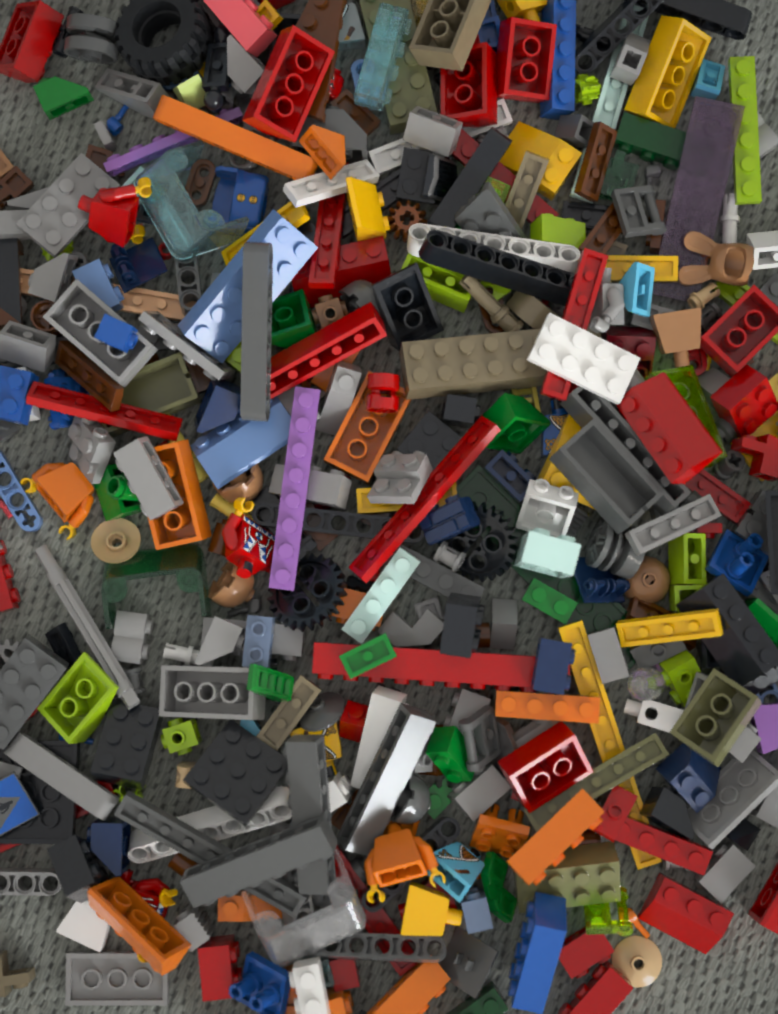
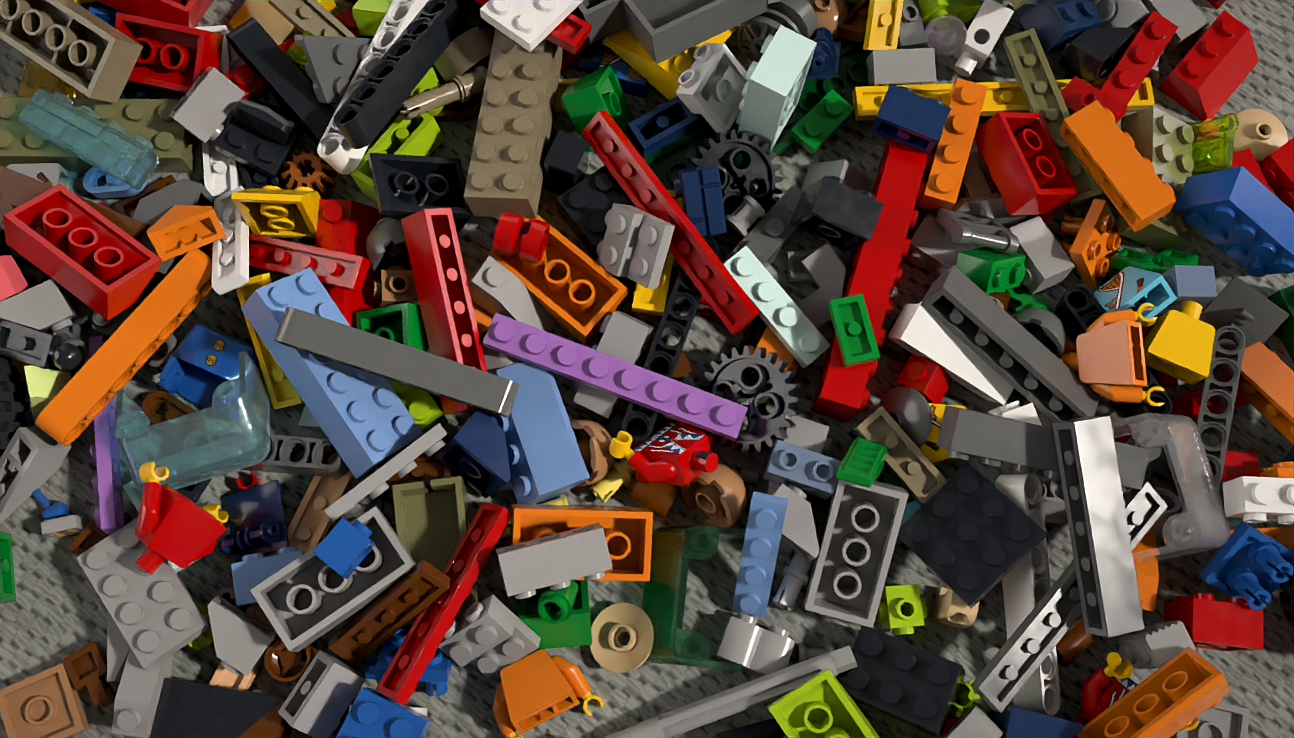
camera: 85 degrees left, 10 degrees down
(190, 623) = (759, 554): none -> medium blue plate

